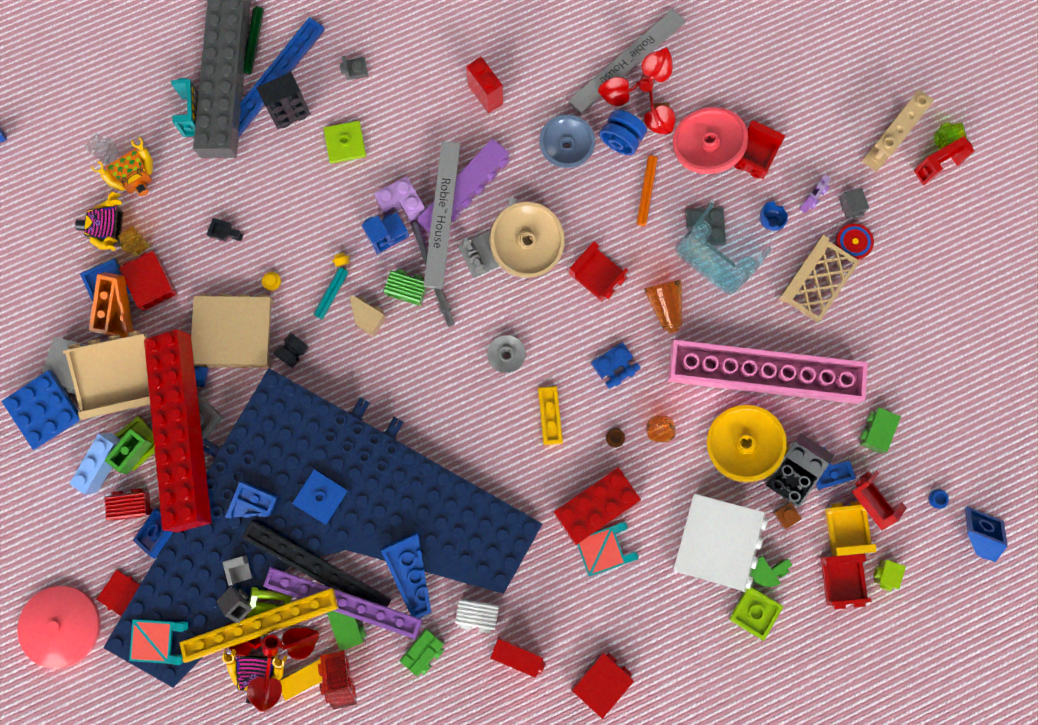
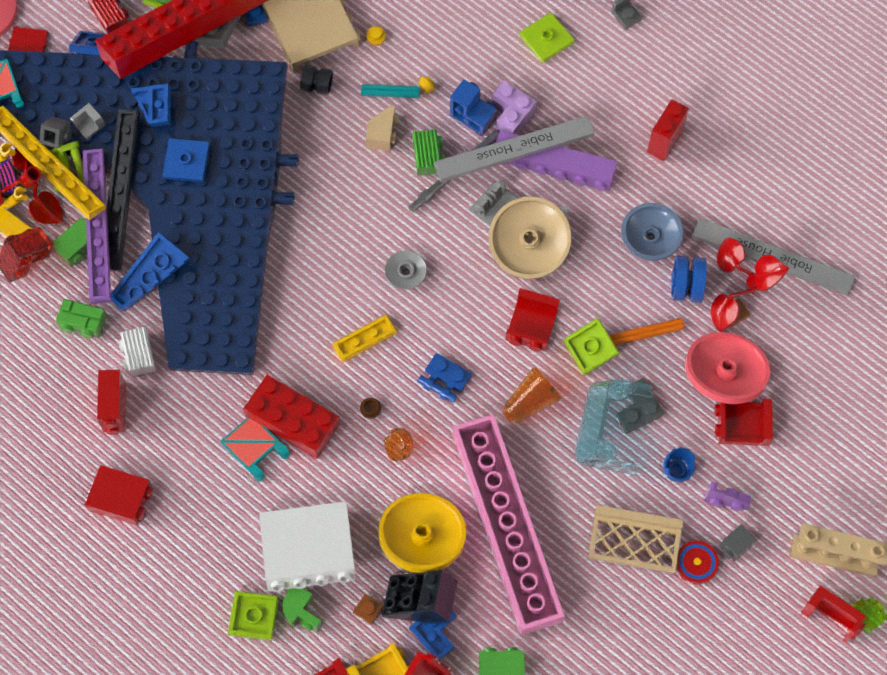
camera: 65 degrees right, 10 degrees down
(642, 236) = (591, 346): none -> lime plate

